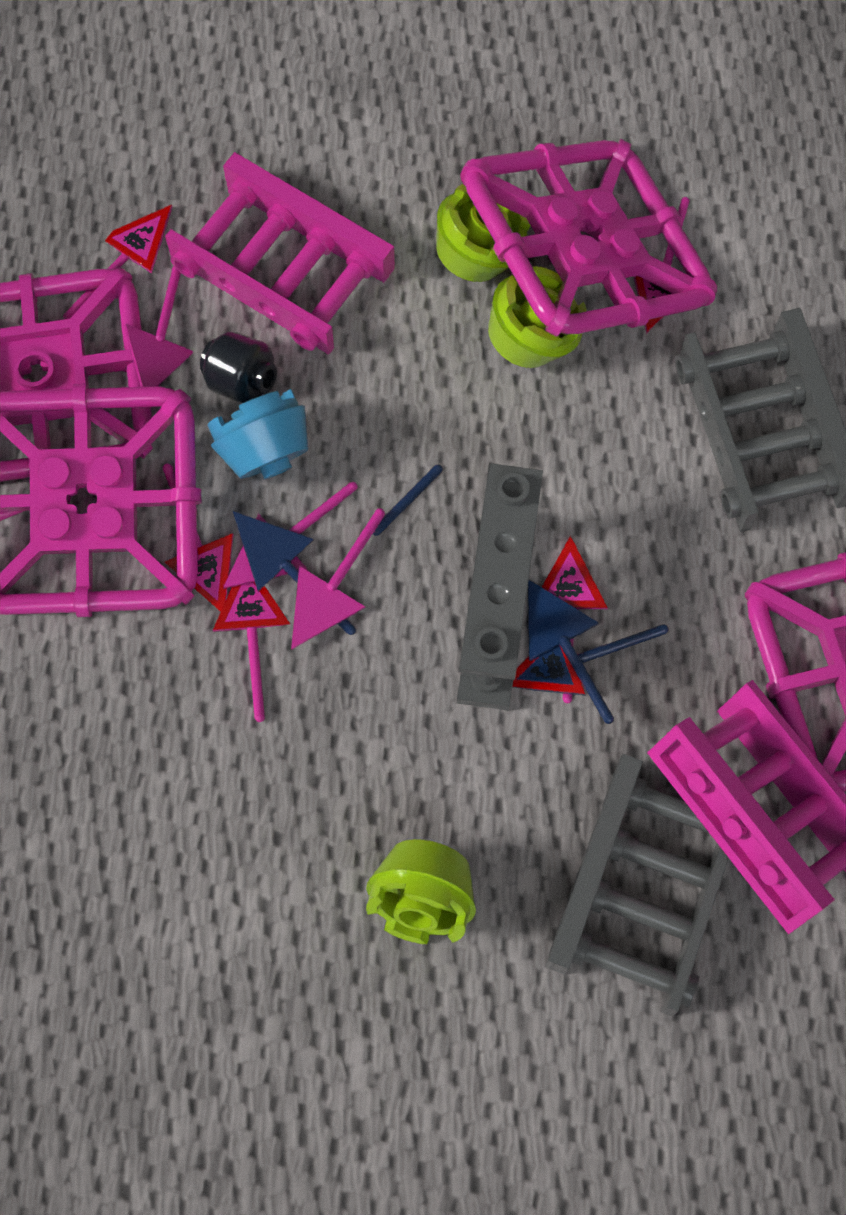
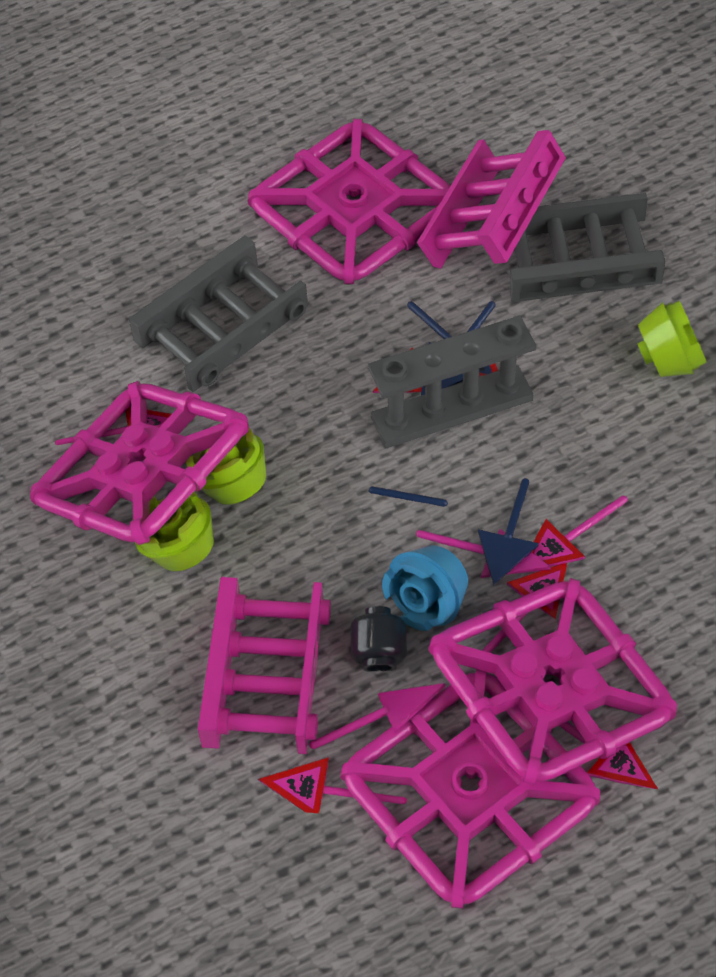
camera: 115 degrees left, 15 degrees down
(320, 603) = (519, 501): dark pink piece -> none

